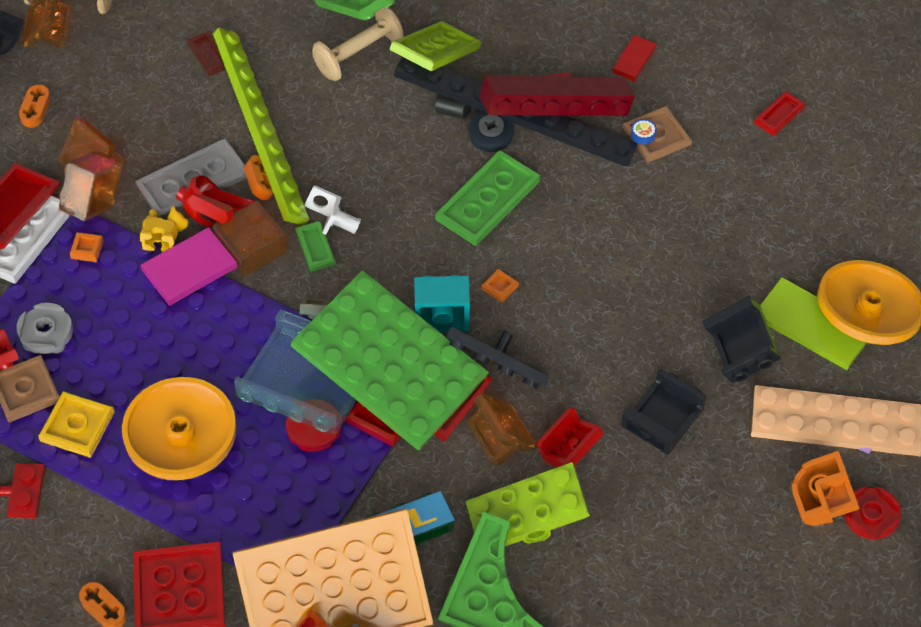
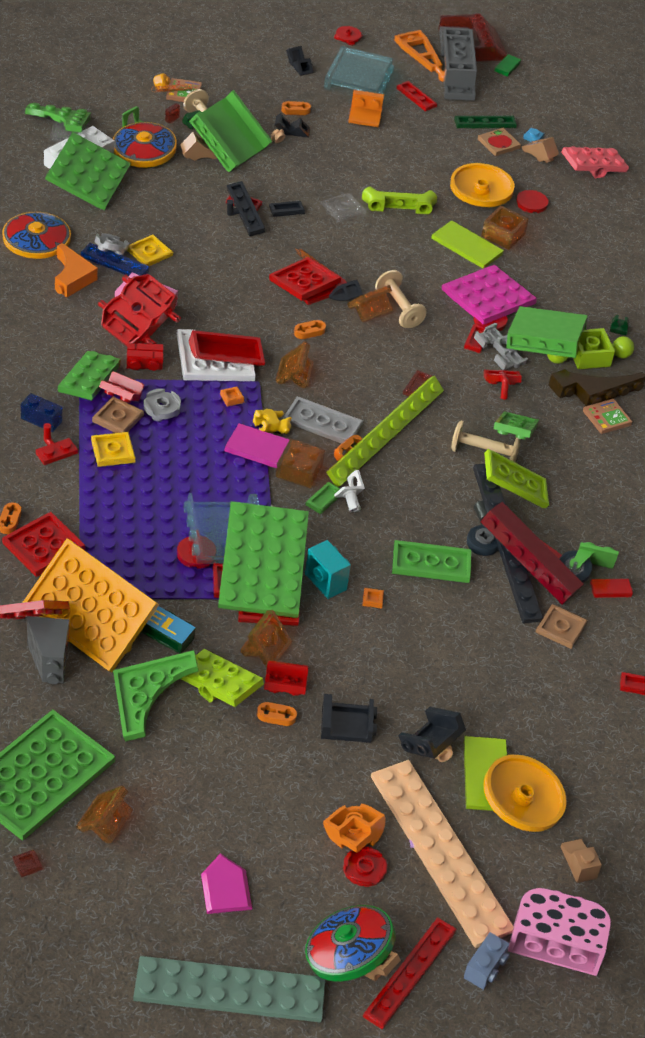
camera: 50 degrees right, 10 degrees down
(90, 185) = (269, 372): clear orange brick -> none
(179, 428) = (141, 489): light orange dish -> none
(206, 198) = (310, 426): red piece -> none
(486, 353) = (314, 619): black plate -> none
(587, 59) = (581, 561): none -> bright green plate
(605, 475) = (276, 714): none -> orange beam
(643, 131) = (552, 615): tile -> none

